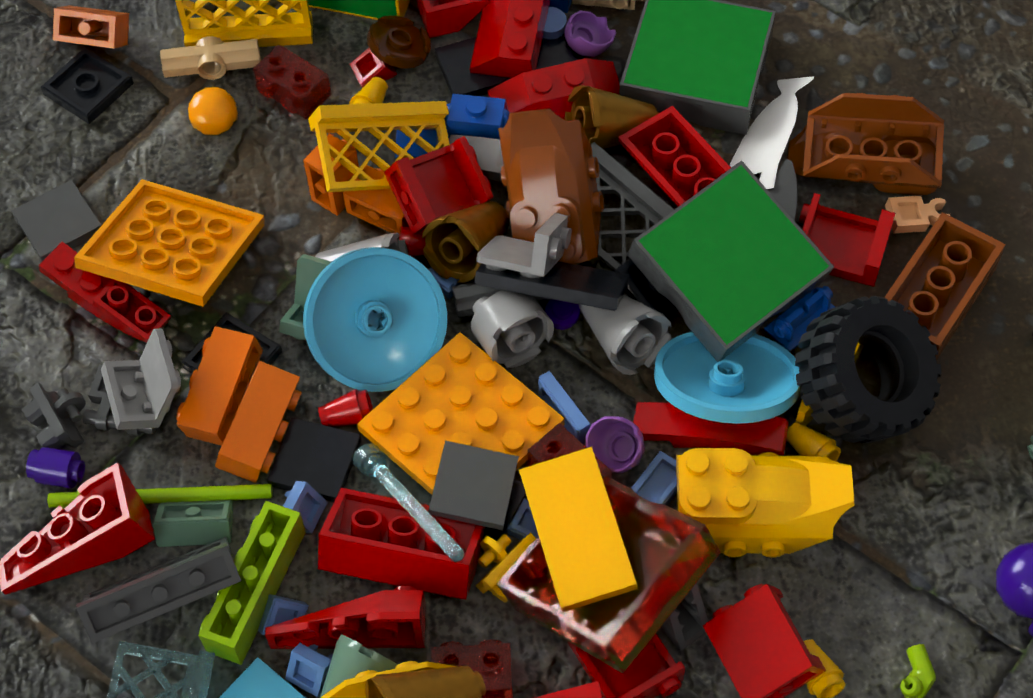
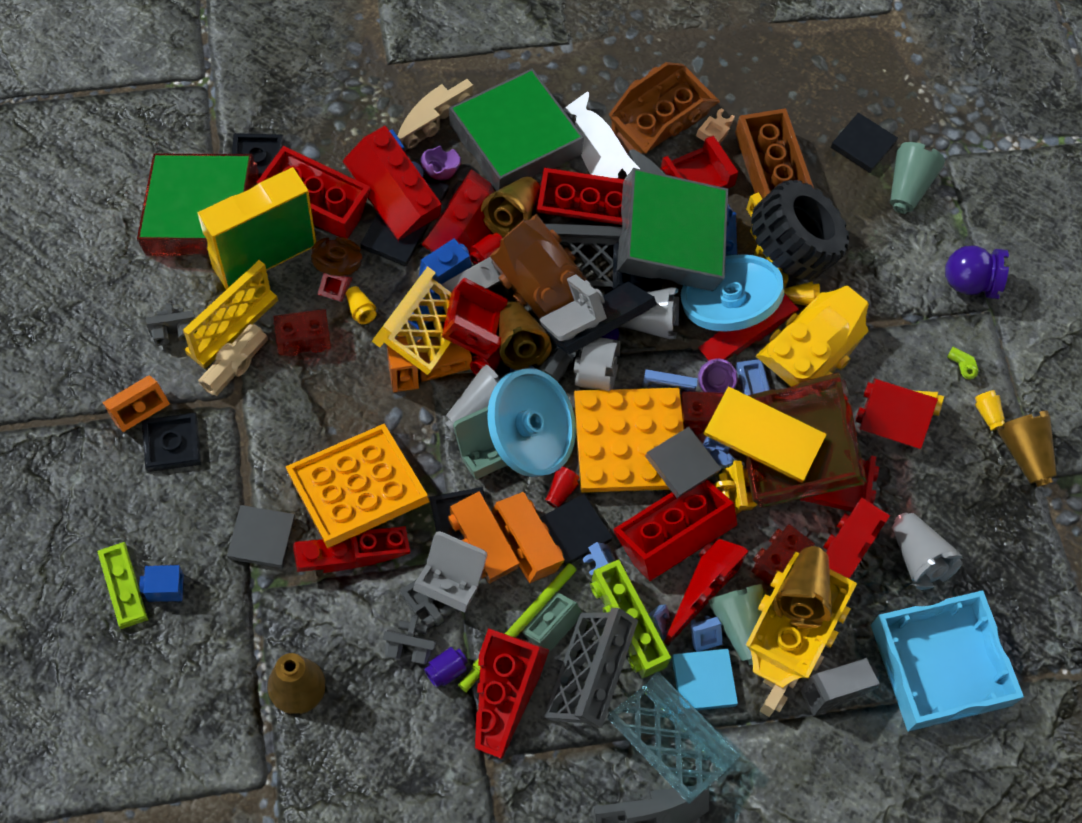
camera: 55 degrees left, 5 degrees up
(212, 111) = (273, 390): light orange hair -> none
(372, 463) = (607, 502): clear light blue piece -> none

